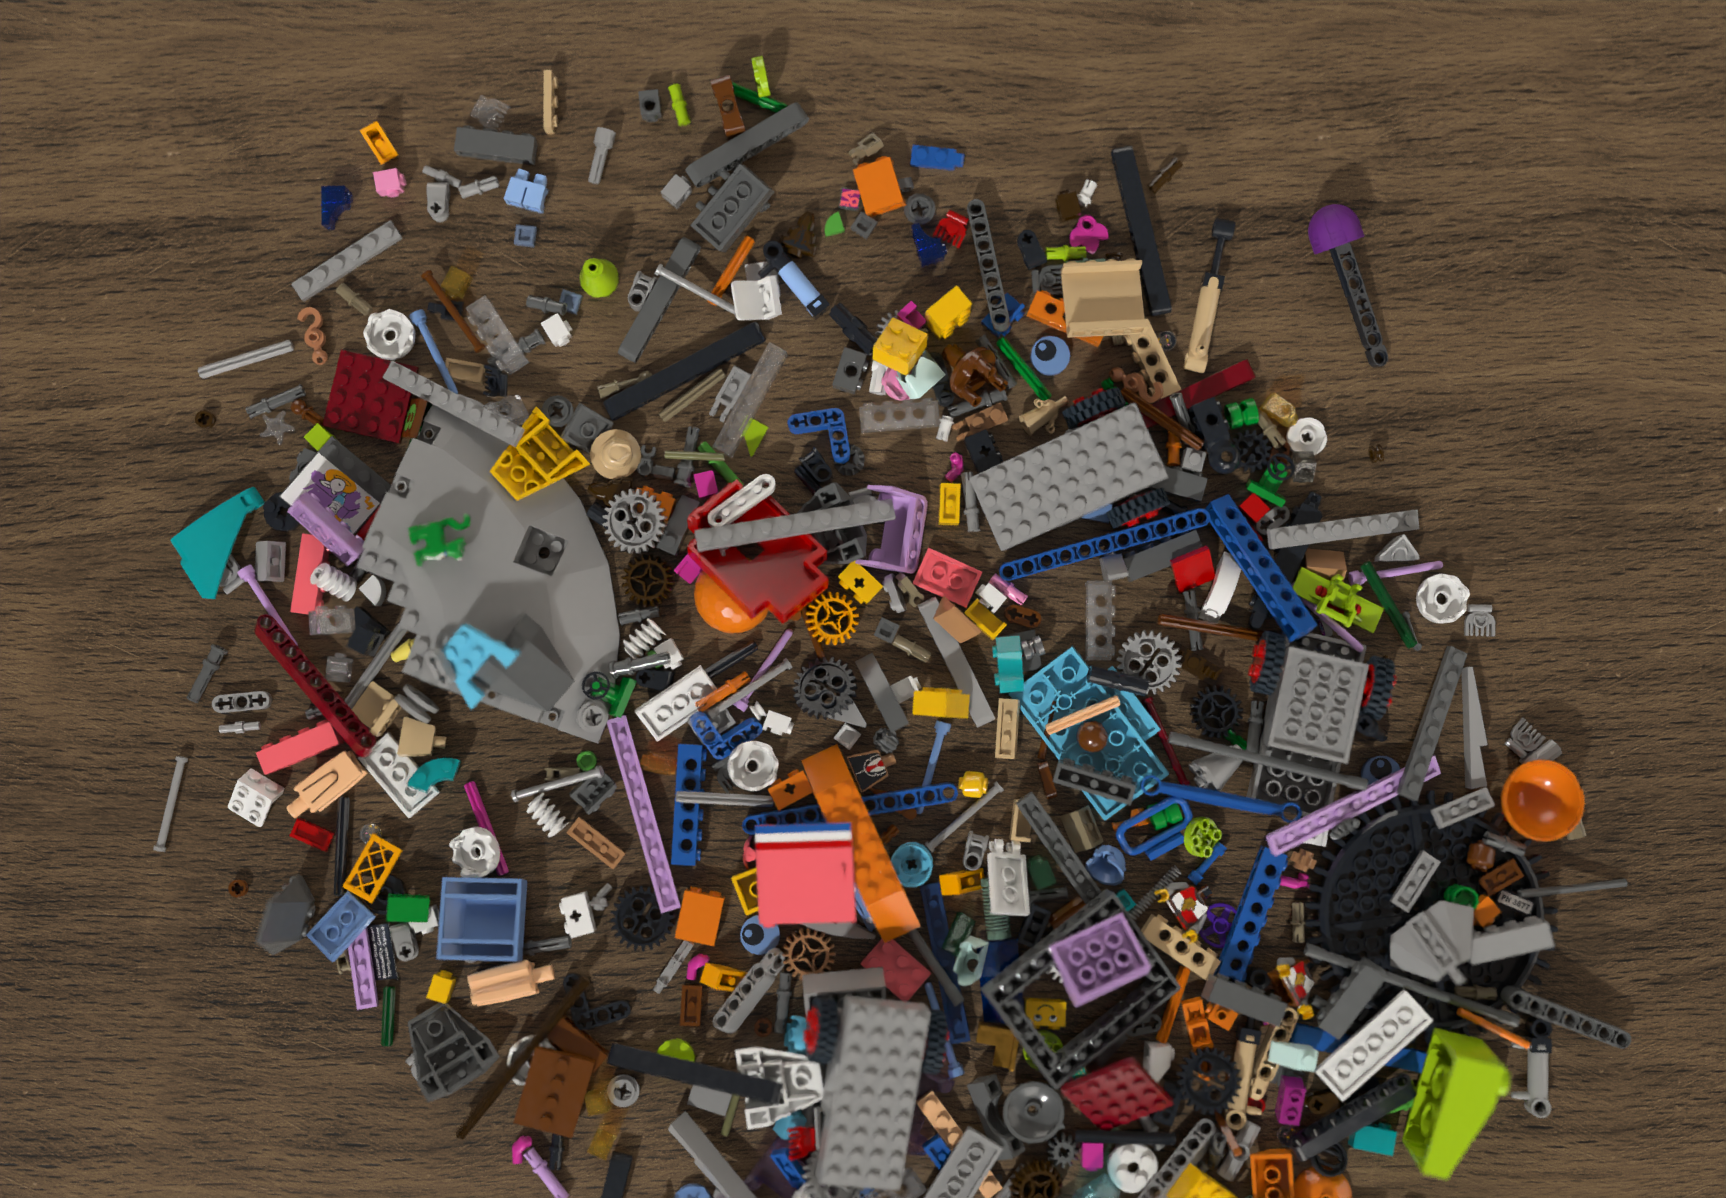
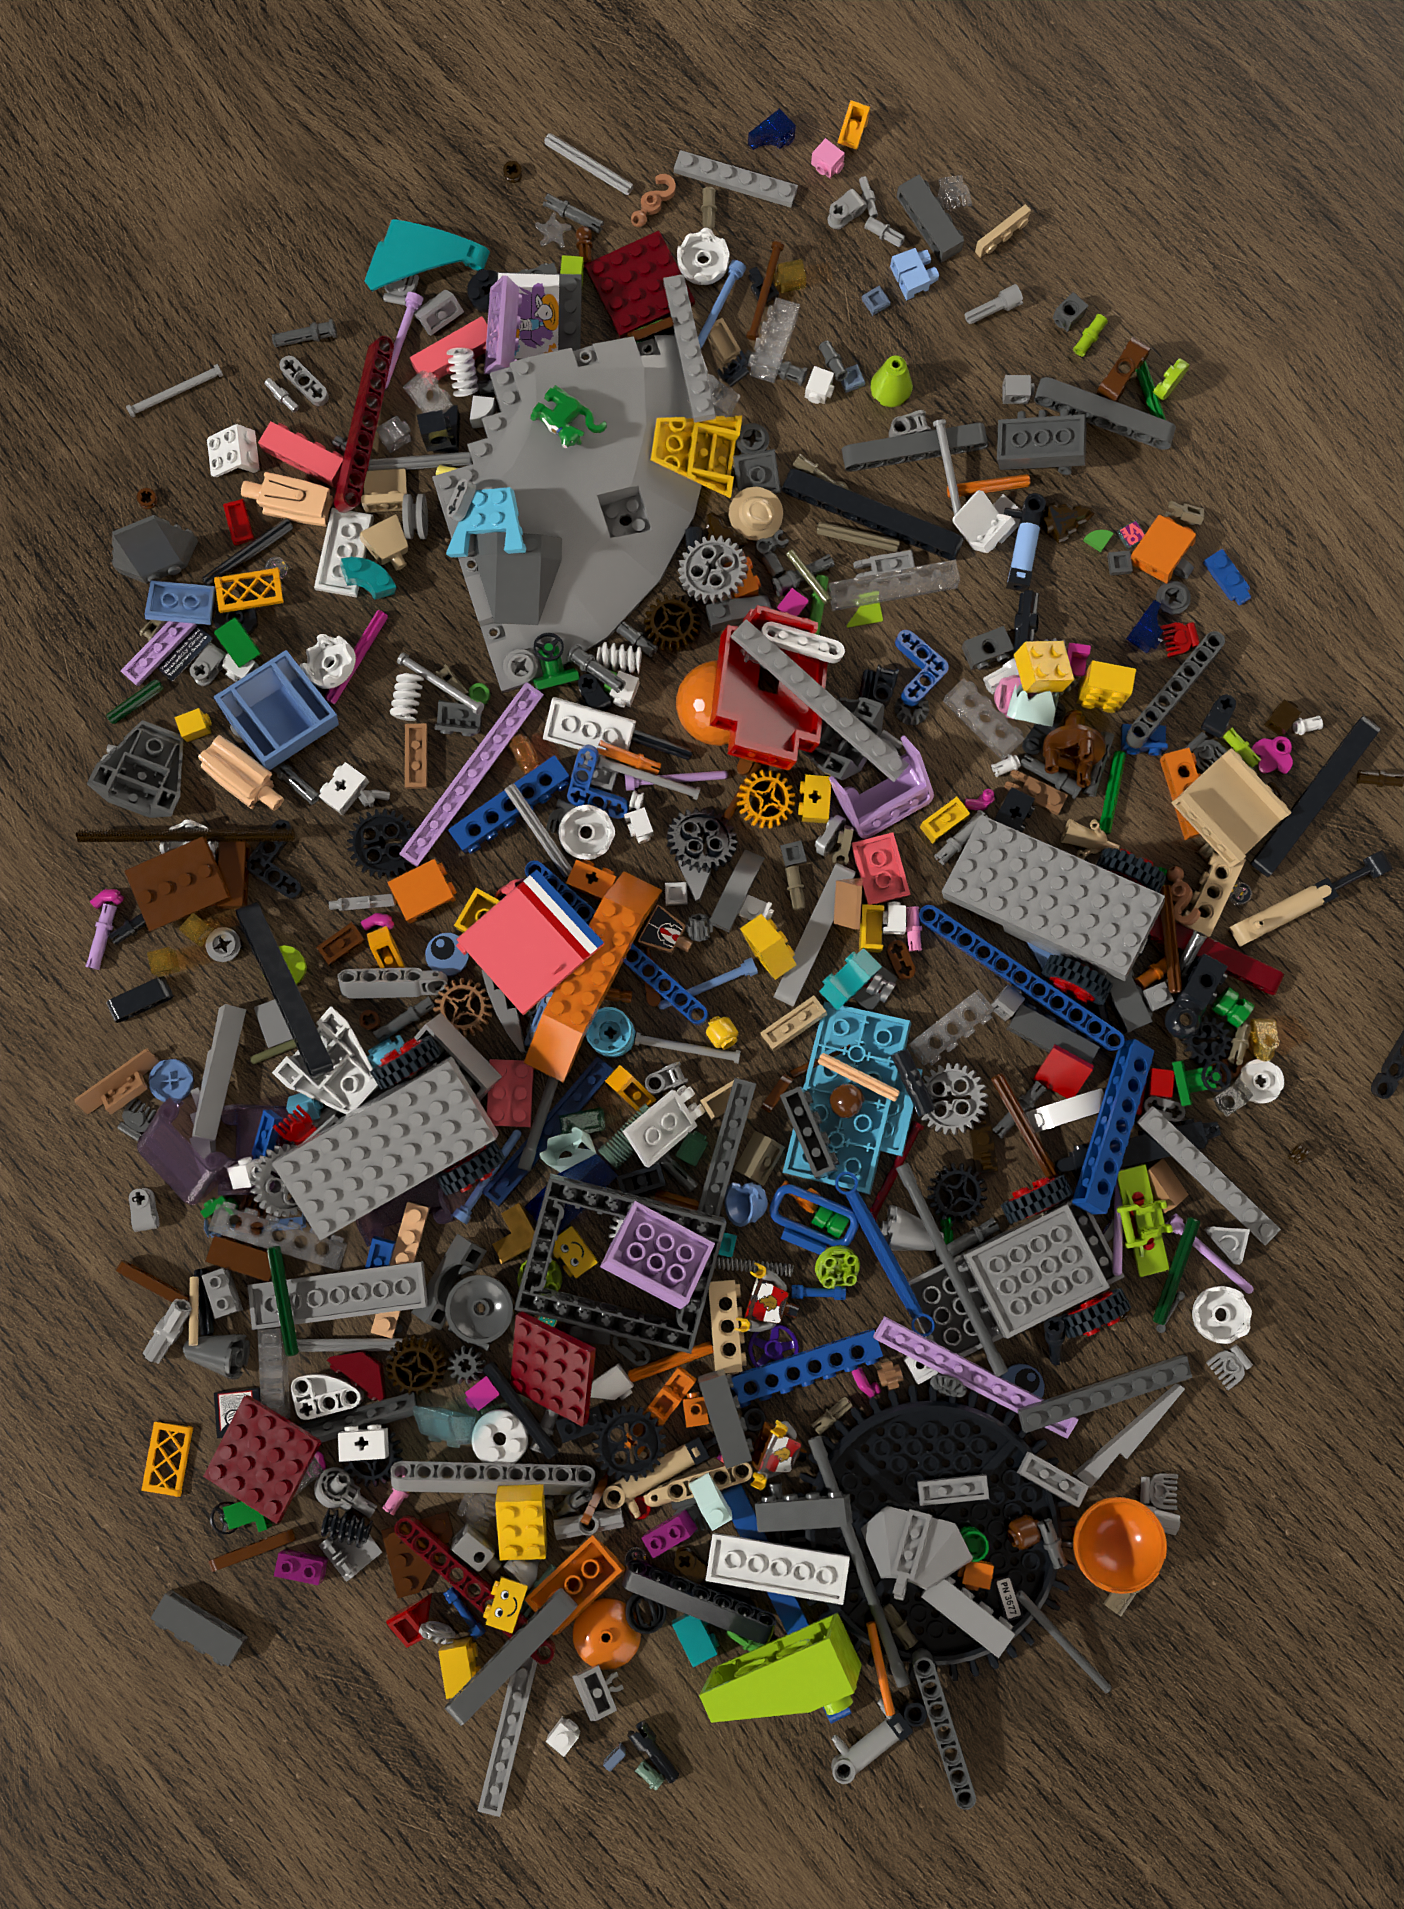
camera: 55 degrees right, 5 degrees down
(688, 569) = (708, 648): dark pink panel -> none
(1050, 355) = (1143, 805): medium blue tile -> none
(1500, 877) = (1019, 1565): reddish brown plate -> none

